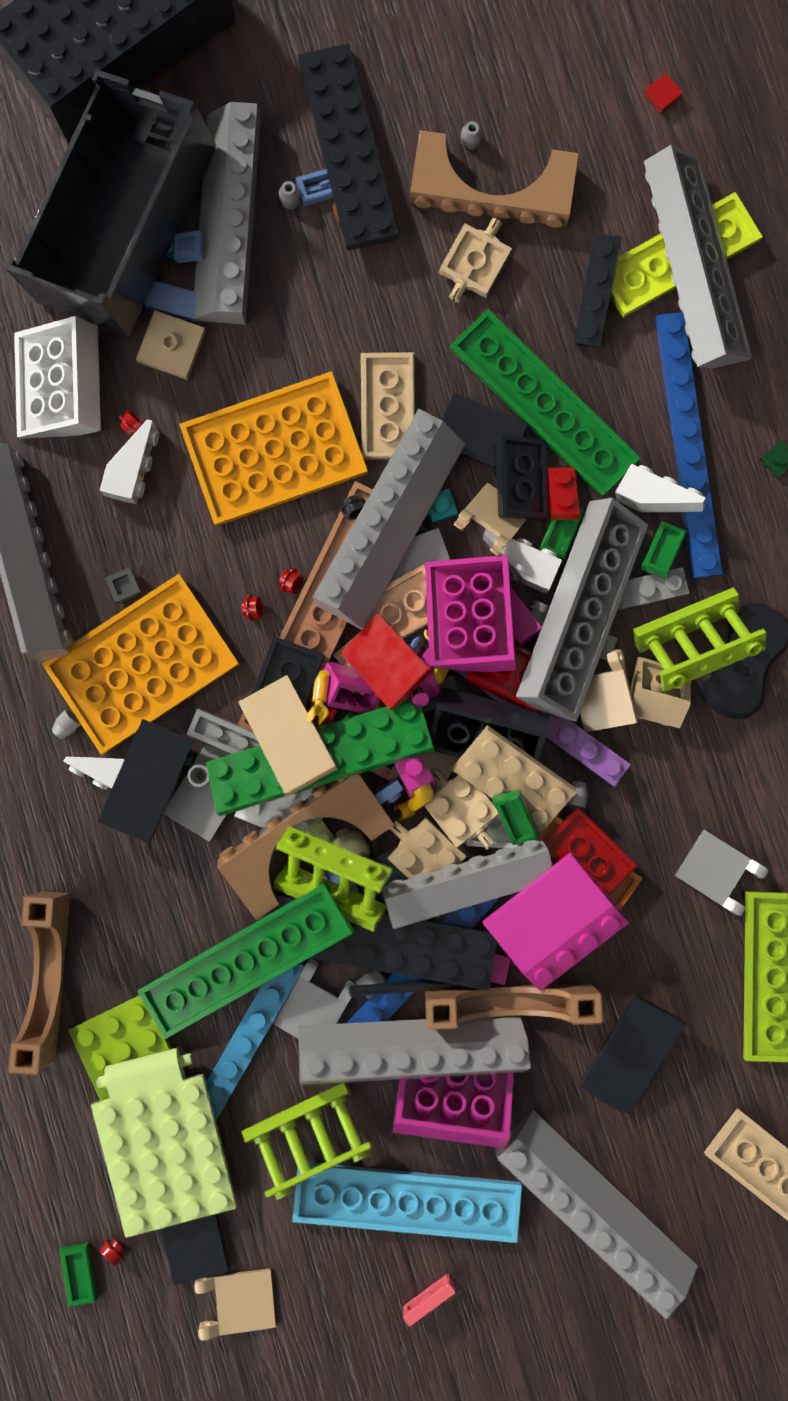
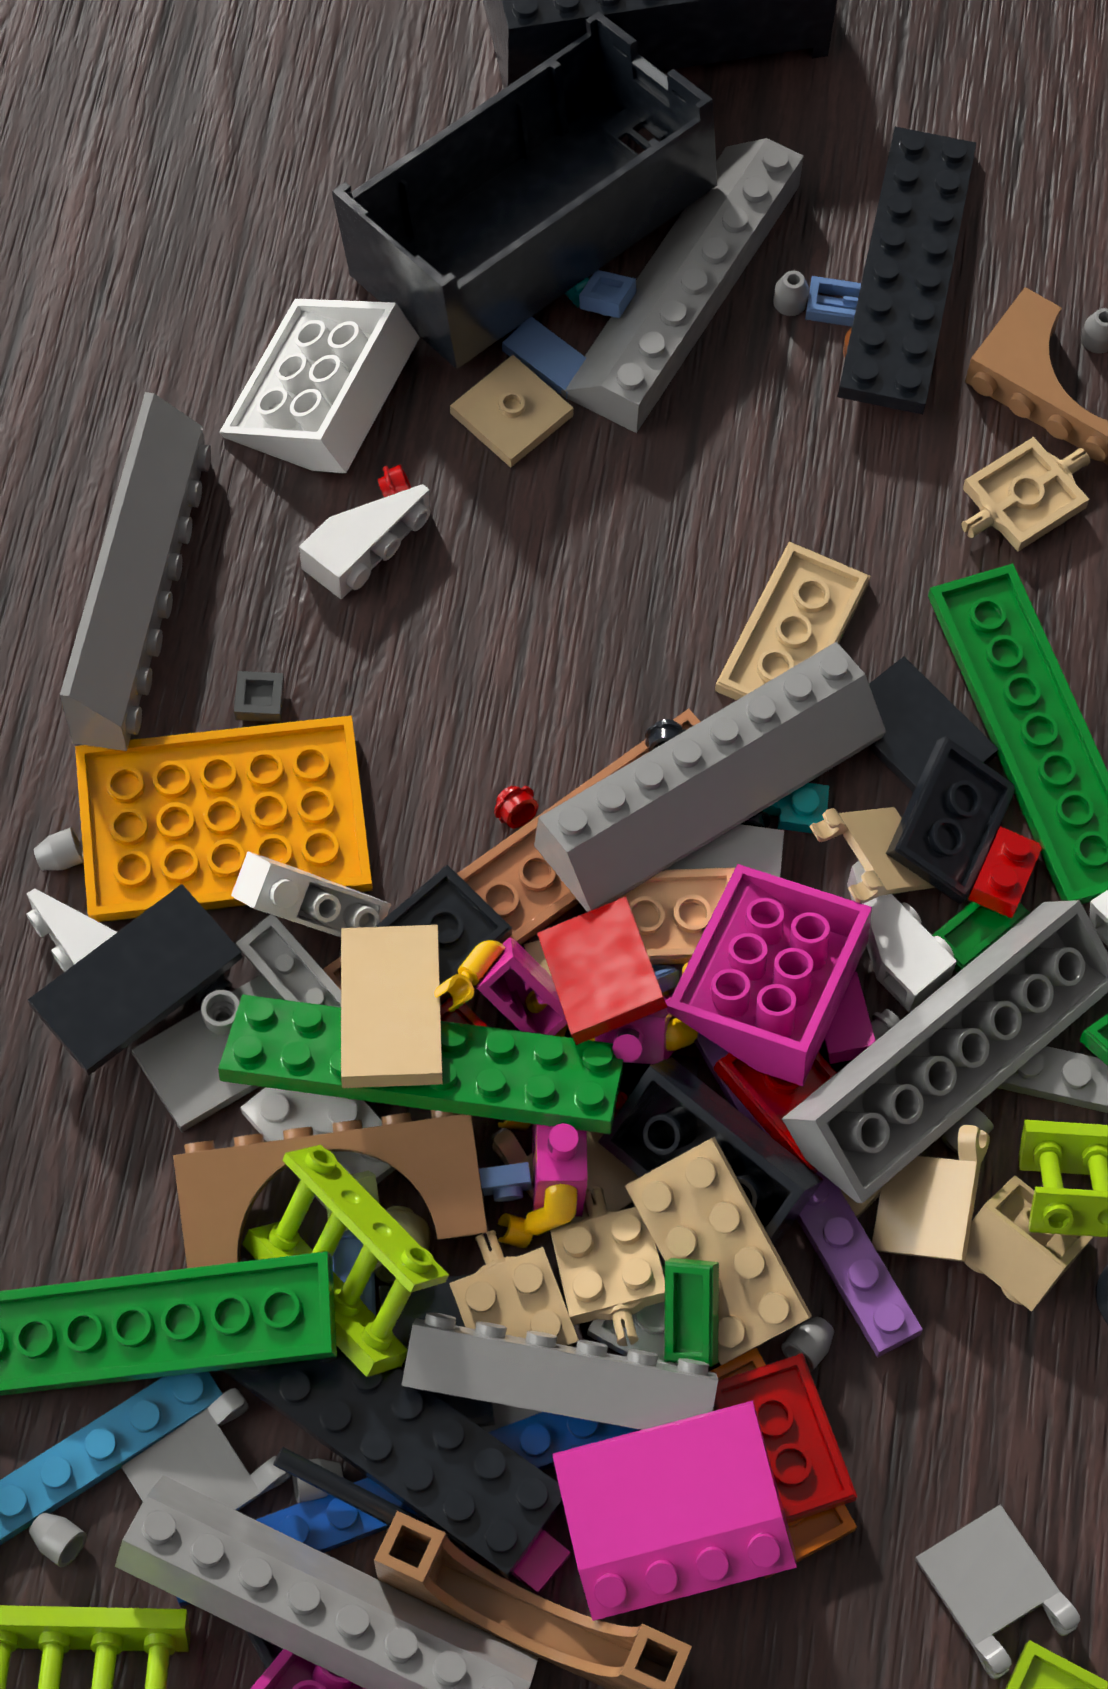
camera: 25 degrees right, 20 degrees down
(210, 691) = (305, 897): none -> white slope
(252, 607) = (436, 816): red plate -> none
(260, 1074) = (57, 1538): none -> light grey hose
(273, 448) = (588, 612): light orange plate -> none

